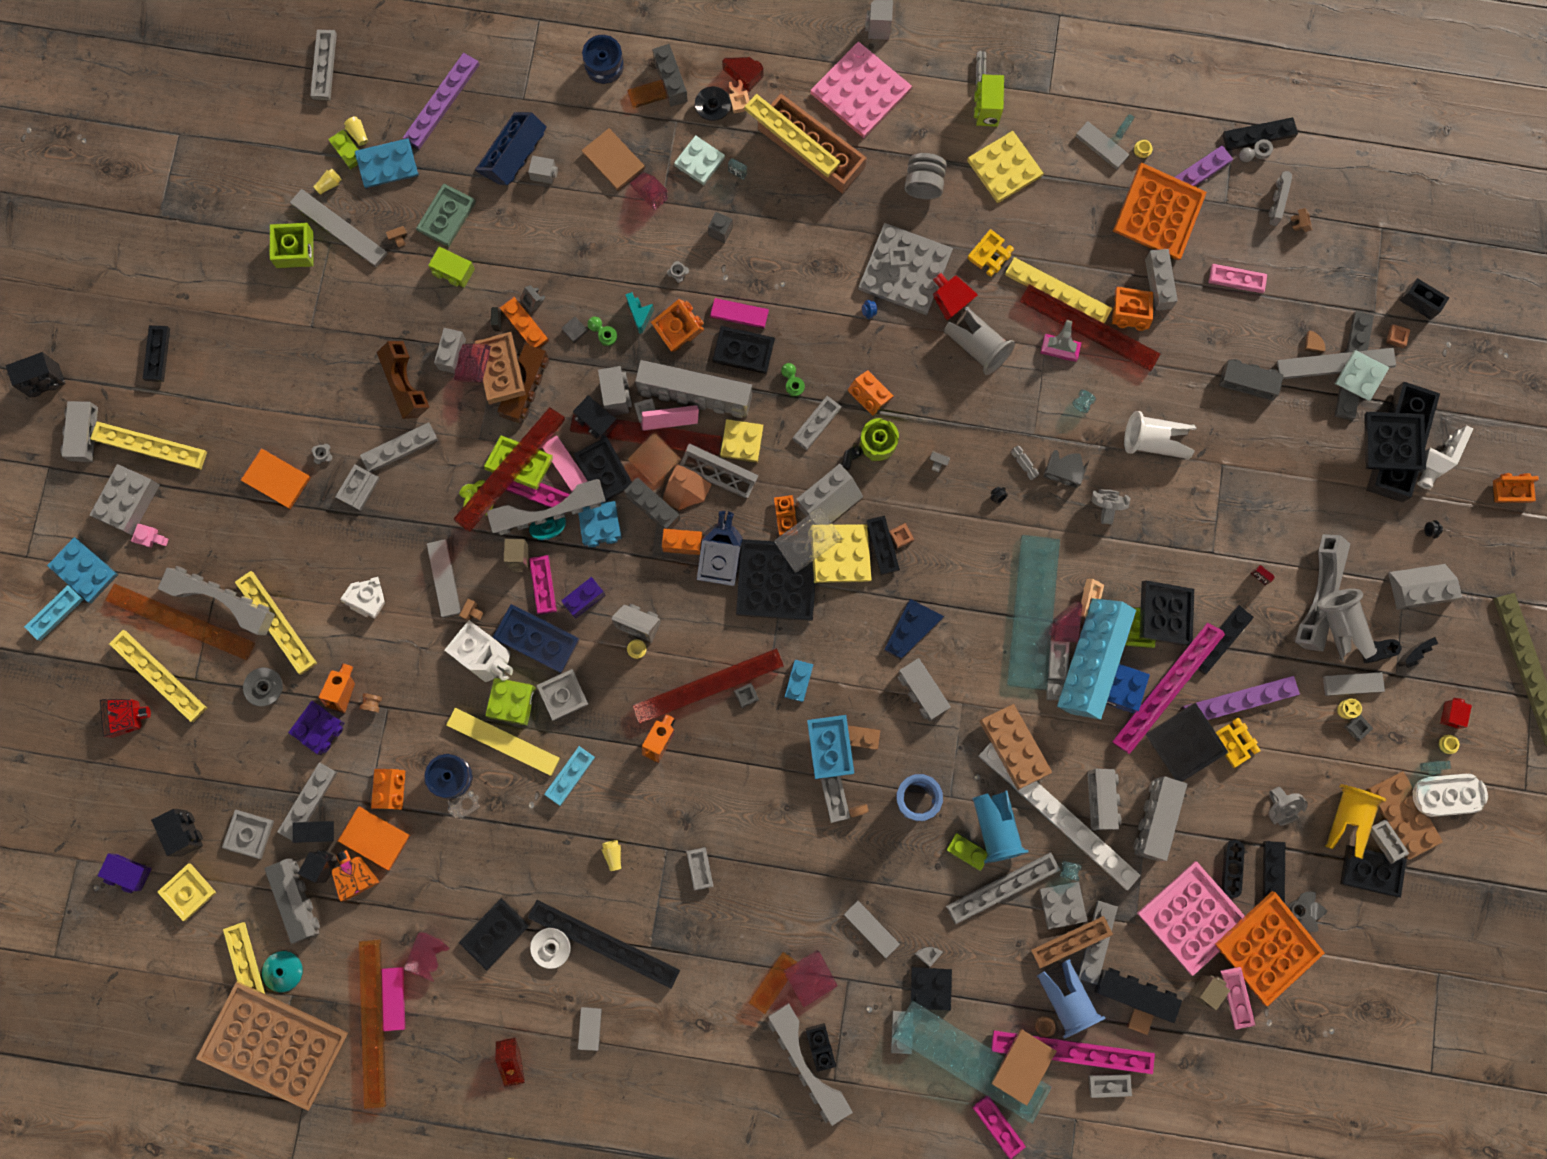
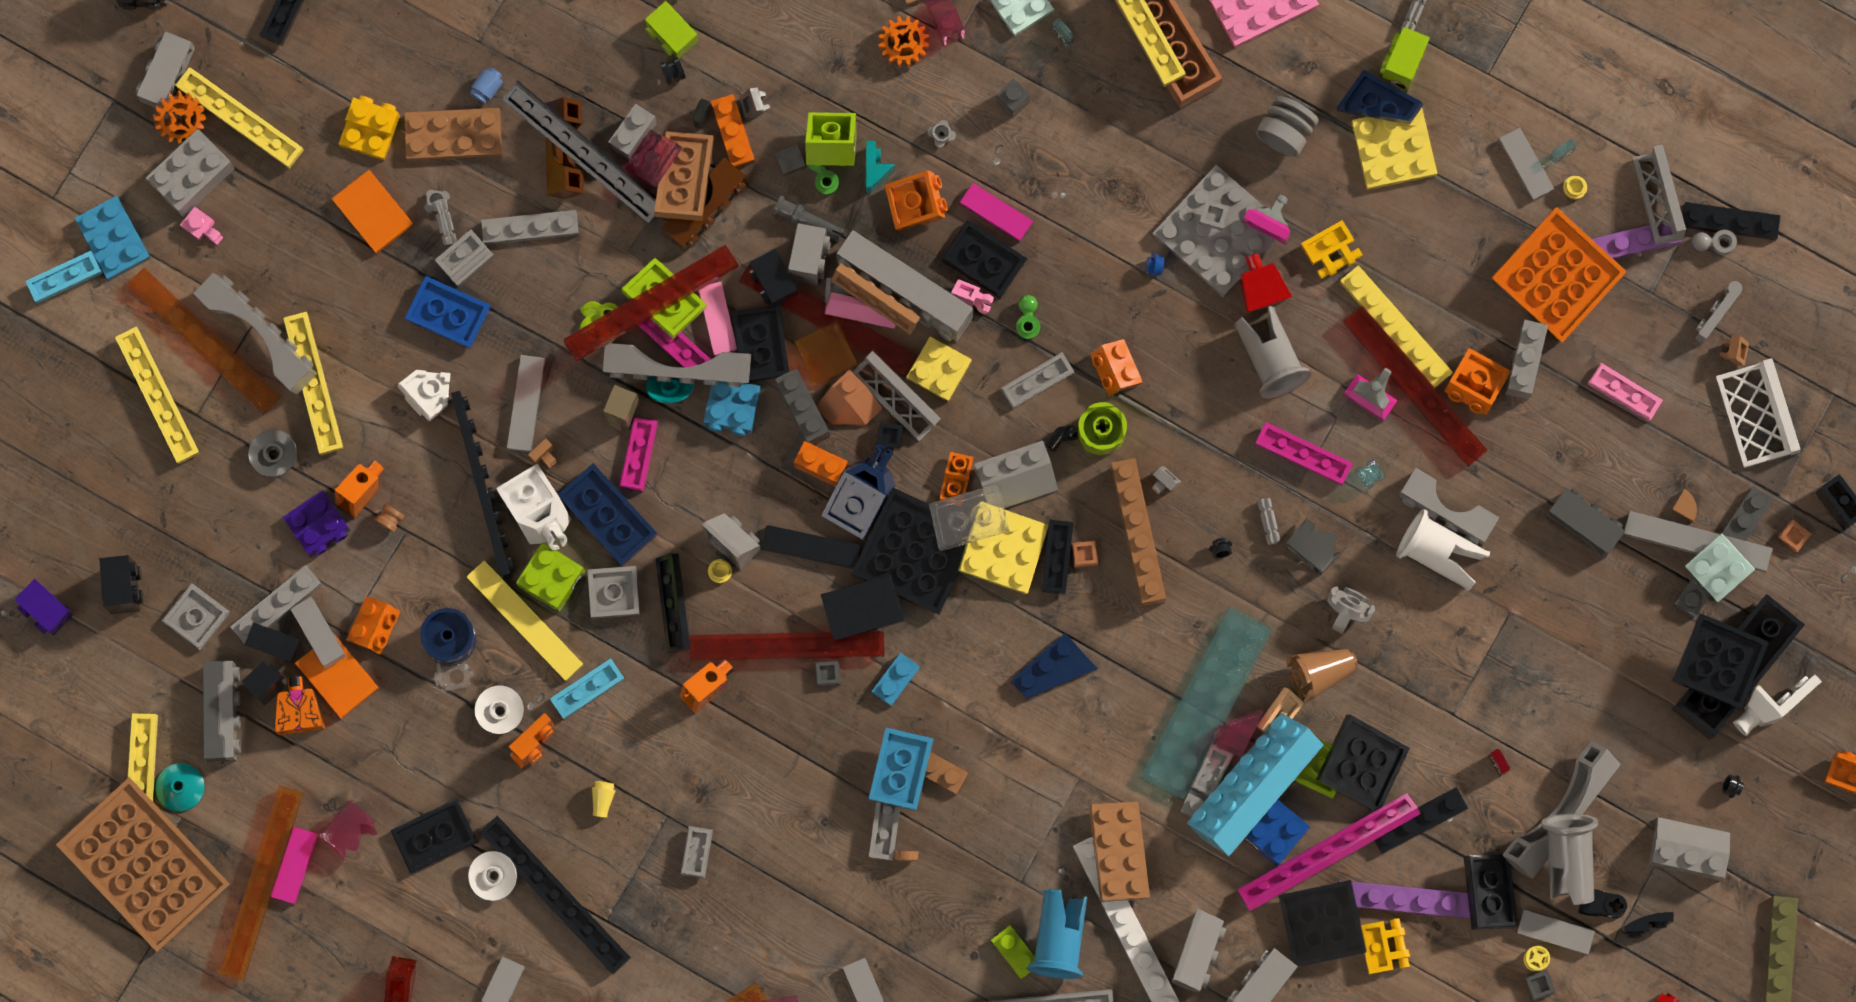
camera: 25 degrees right, 0 degrees up
(105, 452) = (185, 110): none -> orange gear
(121, 716) = (101, 427): torso -> none
(186, 892) = (105, 656): light yellow plate -> none
(251, 417) = (369, 127): none -> yellow plate
(316, 400) = (453, 134): none -> medium nougat plate
(328, 355) = (486, 85): none -> medium blue brick
(332, 466) = (444, 221): none -> light grey axle
(347, 811) = (318, 632): none -> light grey tile
(359, 532) = (447, 312): none -> blue plate
(415, 375) = (581, 150): none -> black tile
(437, 657) = (485, 494): none -> black plate
(463, 295) = (672, 70): none -> black wheel
(498, 816) = (492, 699): none -> white dish
(540, 838) = (526, 747): none -> orange plate
(583, 597) = (680, 487): dark purple brick -> none
(593, 366) = (797, 215): none -> dark grey pin
(599, 302) = (831, 139): none -> lime brick
(610, 686) = (672, 603): none -> black plate
(631, 220) = (897, 35): none -> orange gear
(676, 404) = (875, 298): none -> medium nougat plate
(698, 605) = (811, 547): none -> black tile
(724, 502) = (889, 435): none -> black plate
(745, 377) = (970, 295): none -> bright pink plate
(754, 636) = (862, 608): none -> black tile
(923, 690) = (1037, 745): light grey brick -> none
(930, 787) = (974, 842): medium blue piece -> none
(935, 505) = (1138, 532): none -> medium nougat brick
(940, 247) = (1269, 220): none -> dark pink piece
(983, 135) = (1379, 100): none -> dark blue wing
(1030, 404) = (1303, 454): none -> dark pink plate
(1105, 559) = (1319, 671): none -> medium nougat cone
(1126, 401) = (1473, 524): none -> light grey arch
(1211, 127) = (1667, 191): none -> light grey fence
(1296, 672) = (1490, 892): none -> black tile
(1352, 251) = (1778, 406): none -> white fence

